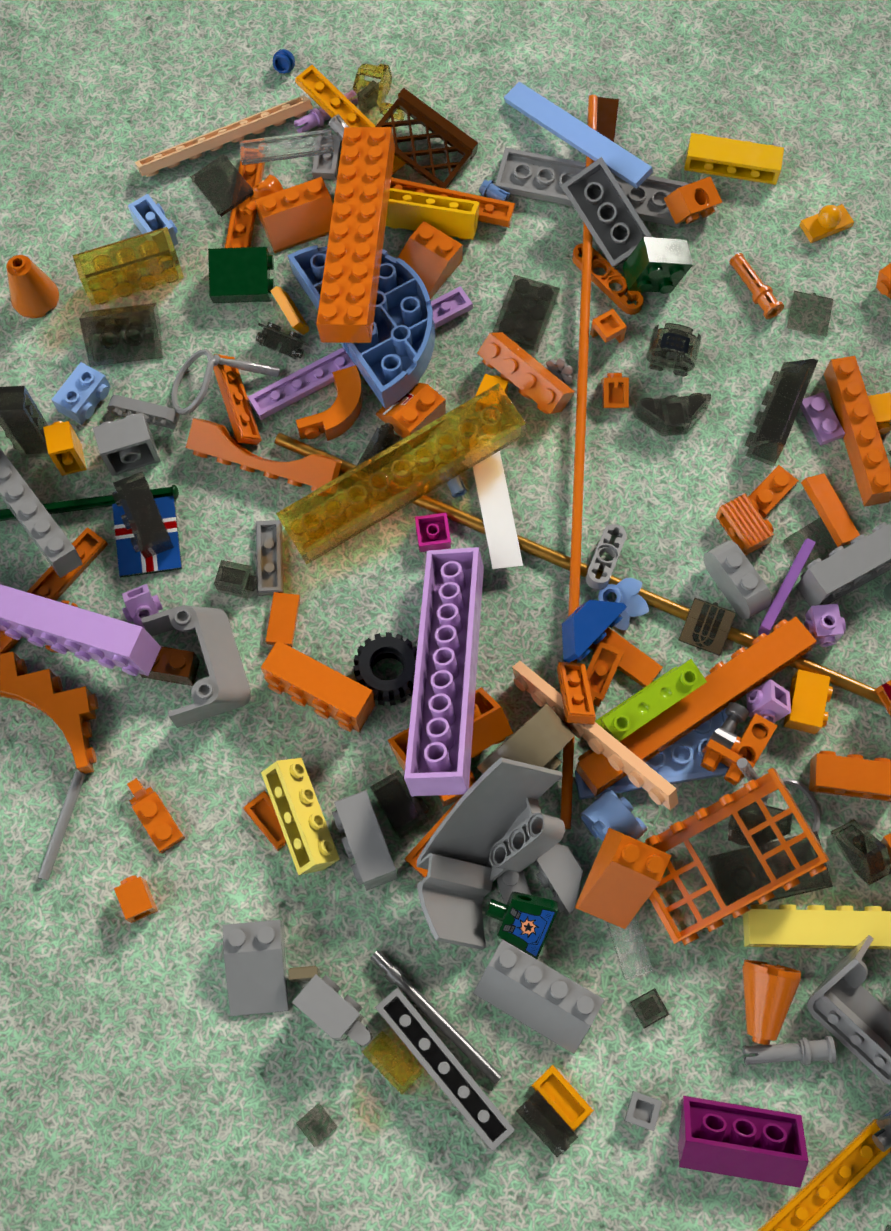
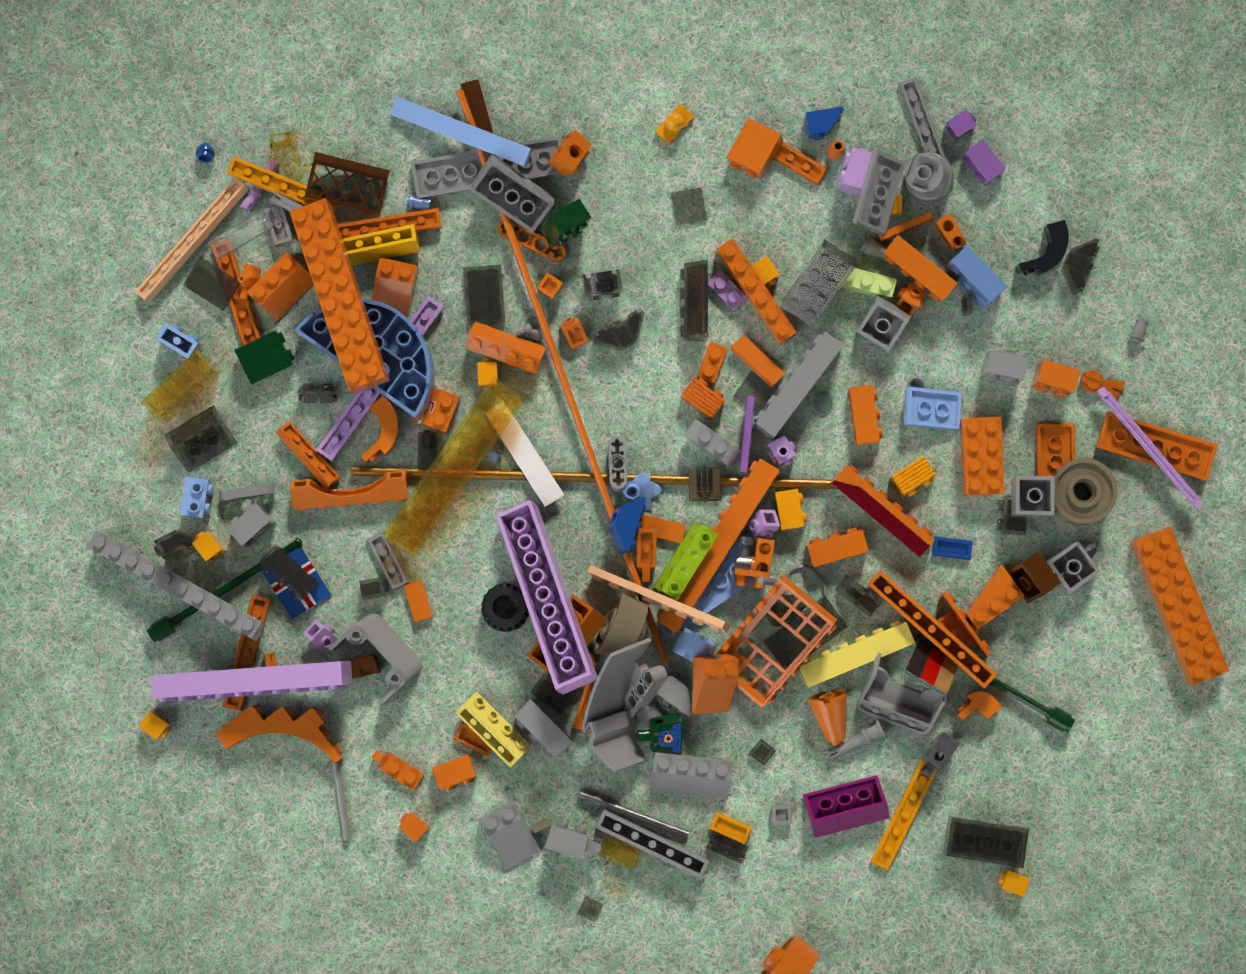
camera: 25 degrees left, 15 degrees up
(30, 288) = (118, 433): orange cone -> none
(213, 361) = (281, 436): light grey piece -> none
(223, 851) = (454, 772): none -> orange brick
(290, 310) = (313, 368): light orange tile -> none
(318, 687) = (465, 640): orange brick -> none
(368, 97) = (286, 159): clear smoke tile -> none
(433, 532) = (492, 496): dark pink piece -> none
(576, 693) = (637, 576): orange tile -> none
(734, 158) = (585, 98): yellow brick -> none
(761, 293) = (651, 205): orange pin -> none

